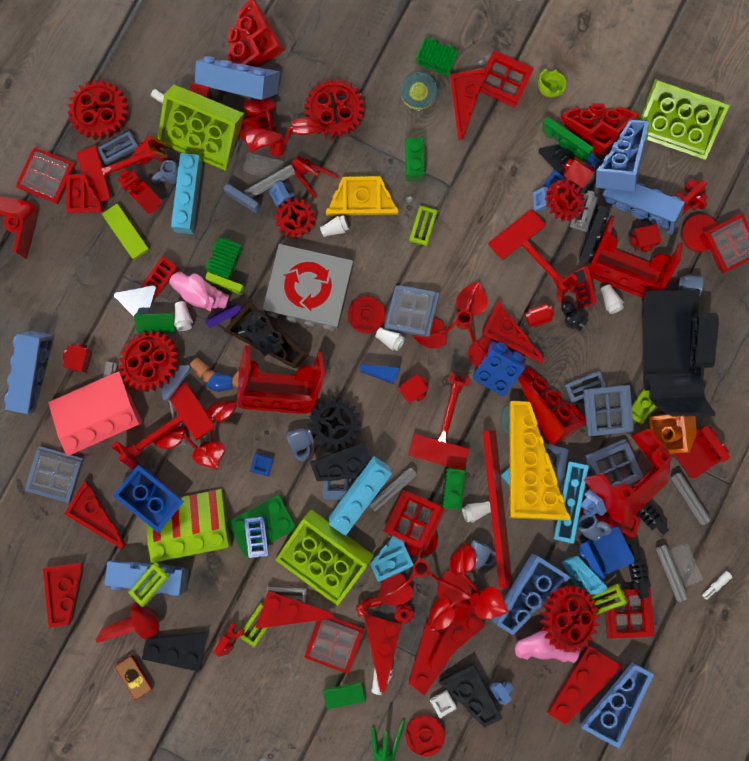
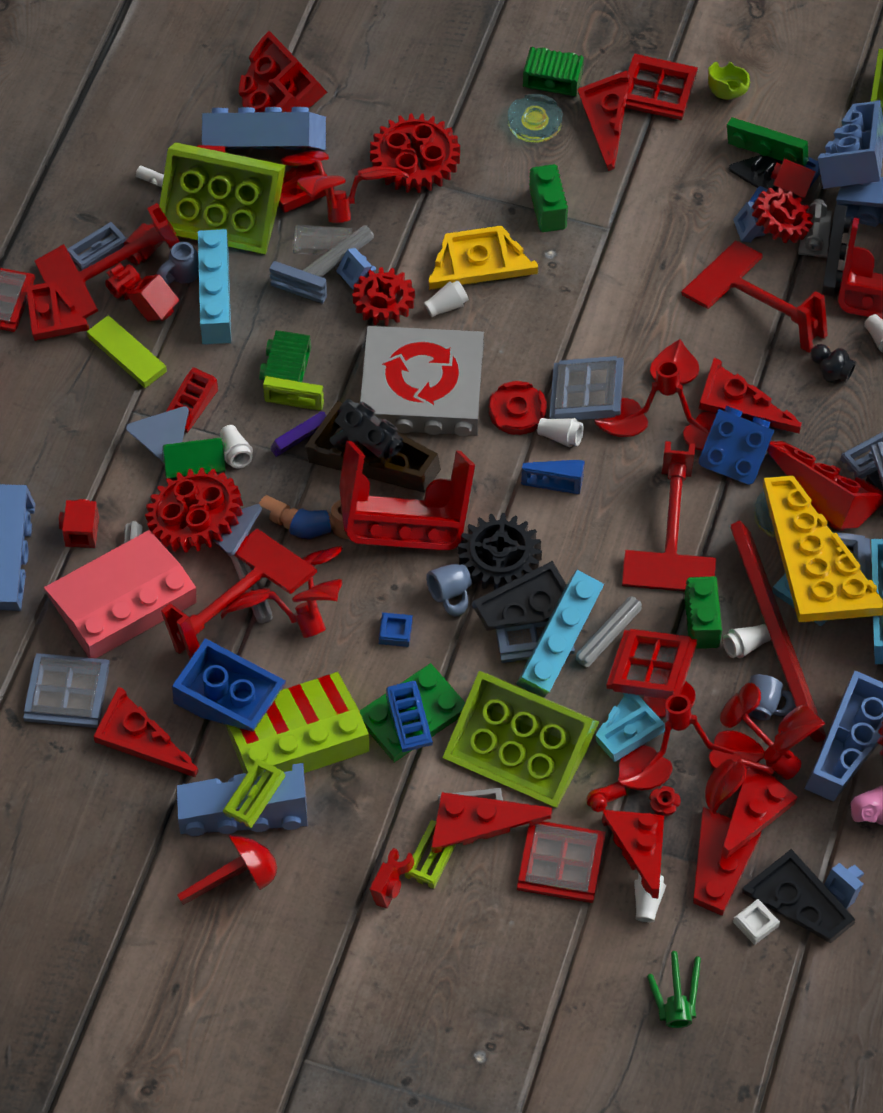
camera: 10 degrees left, 25 degrees down
(61, 592) = (106, 850): red wing -> none
(98, 109) = (60, 201): red gear -> none
(133, 677) = (244, 960): tile -> none
(179, 651) = (308, 910): black wing -> none
(197, 291) = (253, 408): bright pink animal -> none
(303, 166) = (384, 231): red plant -> none
(344, 695) = (593, 931): green slope -> none
(414, 389) = (611, 490): red brick -> none
(418, 241) = (577, 301): lime tile -> none
(425, 735) = (737, 972): red tile -> none
(539, 315) = (781, 369): red brick -> none
(584, 290) = (840, 325): slope -> none
(598, 125) = (807, 120): red brick -> none

